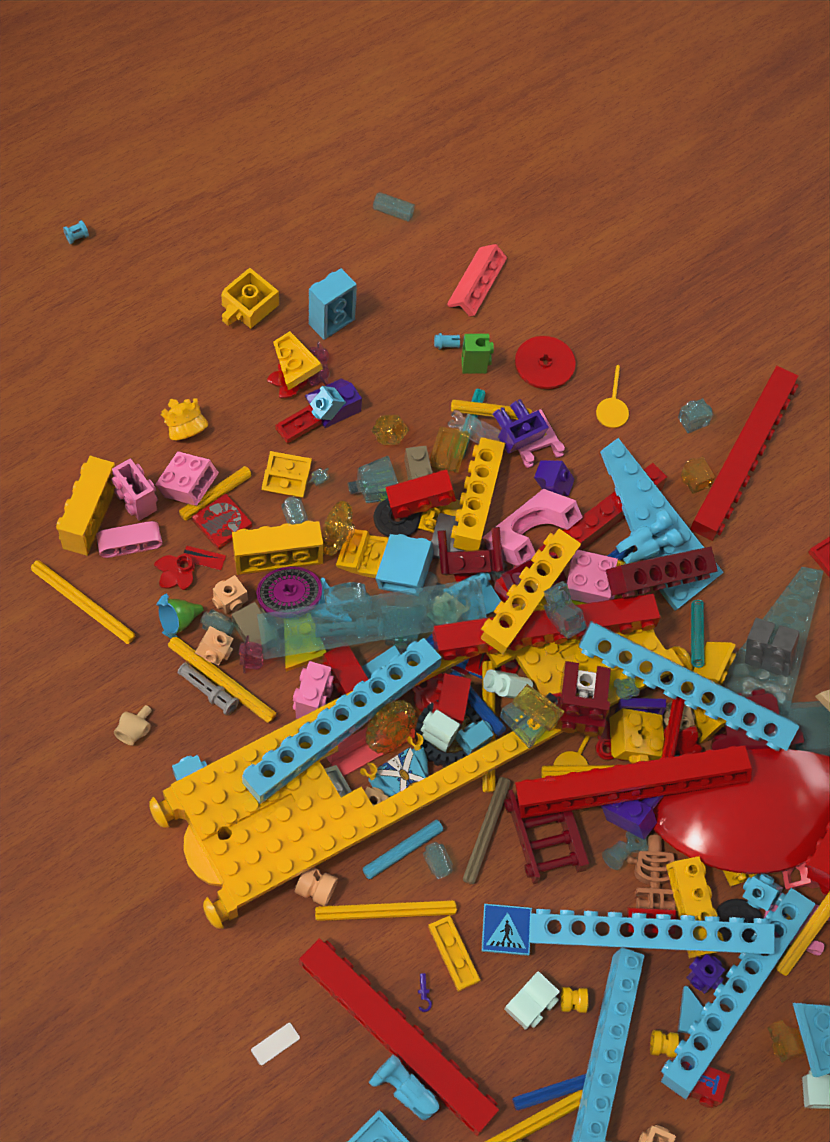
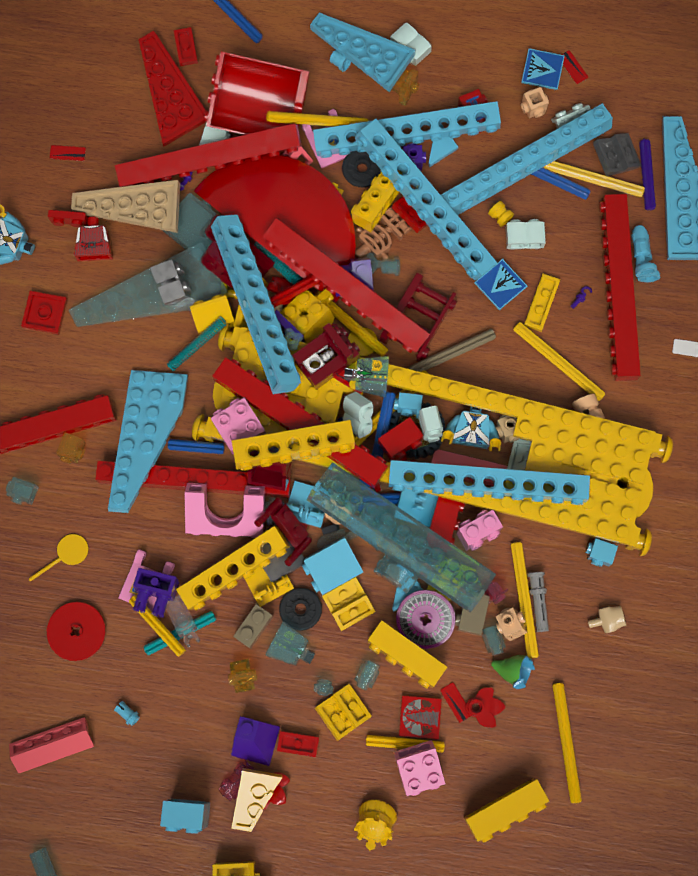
camera: 125 degrees left, 15 degrees up
(129, 539) = (497, 760): bright pink beam -> none
(134, 489) = (464, 793): bright pink brick -> none
(229, 595) = (461, 652): light nougat brick -> none
(327, 403) = (272, 736): medium azure brick -> none
(337, 528) = (354, 632): clear yellow gear -> none
(390, 726) = (454, 456): clear yellow gear -> none
(402, 849) = (513, 387): medium azure axle -> none
(420, 494) = (275, 601): red brick -> none
(438, 860) = (500, 360): clear light blue brick -> none
(449, 449) = (217, 623): clear yellow plate -> none
(476, 353) = (121, 677): bright green brick -> none
(538, 707) = (366, 369): clear yellow plate -> none
(554, 477) = (169, 533): dark purple brick -> none
(562, 612) = (287, 410): clear light blue brick -> none
(643, 539) = (171, 424): medium azure piece -> none
(661, 571) = (186, 389): dark red brick -> none
(663, 1043) = (475, 147): yellow wheel -> none
(761, 891) = (332, 167): medium azure brick -> none

